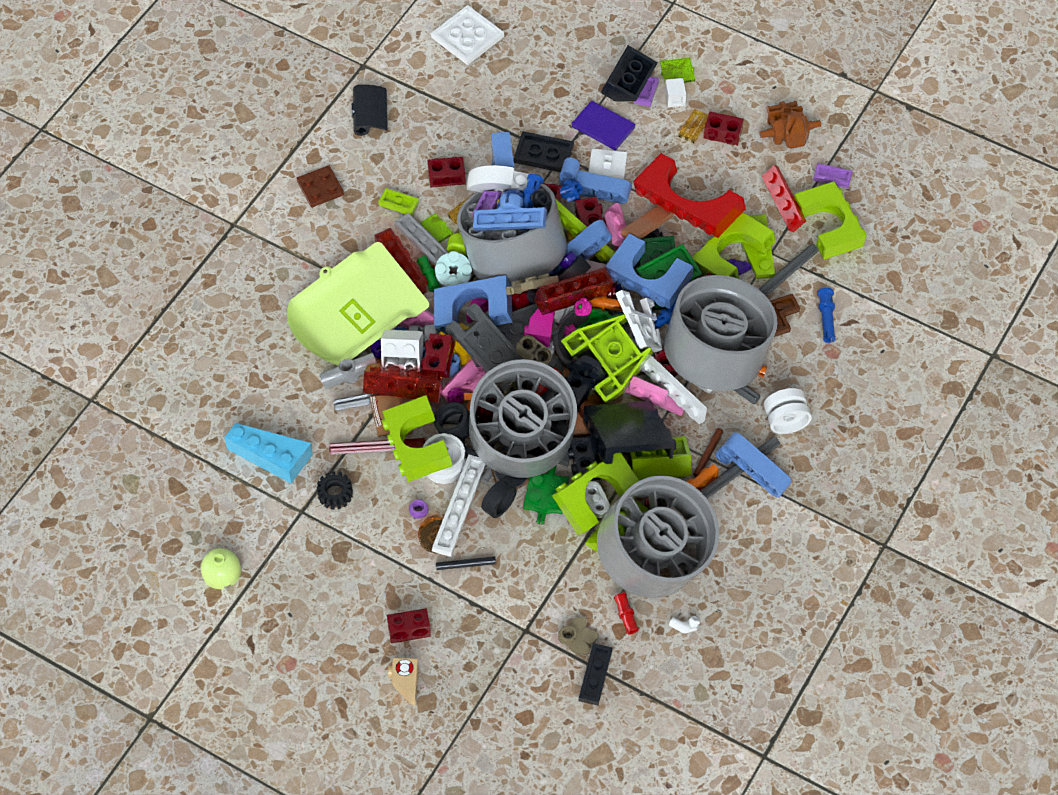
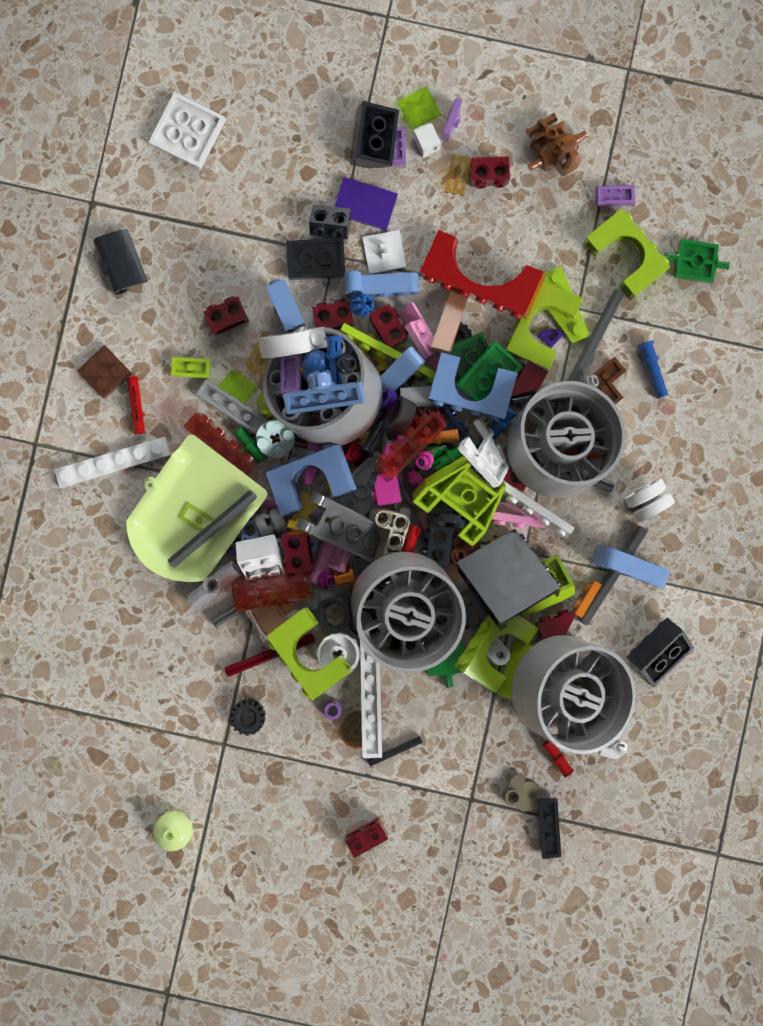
camera: 20 degrees left, 30 degrees up
(270, 451) = (174, 698): medium azure wedge -> none
(294, 255) = (112, 462): none -> white plate
(332, 234) = (133, 383): none -> red pin
(366, 322) = (212, 528): none -> dark grey axle
(405, 677) = (381, 889): tan slope -> none
(499, 498) = (405, 685): black tyre -> none
(531, 283) = (365, 452): dark tan plate -> none
(566, 126) = (330, 221): none -> black brick
(703, 84) = (453, 120): none -> medium lavender plate
(708, 452) = (582, 560): copper bar -> none
(760, 549) = (660, 651): none -> black slope
(783, 198) = (574, 241): plate -> none
(893, 242) = (696, 261): none -> green plate

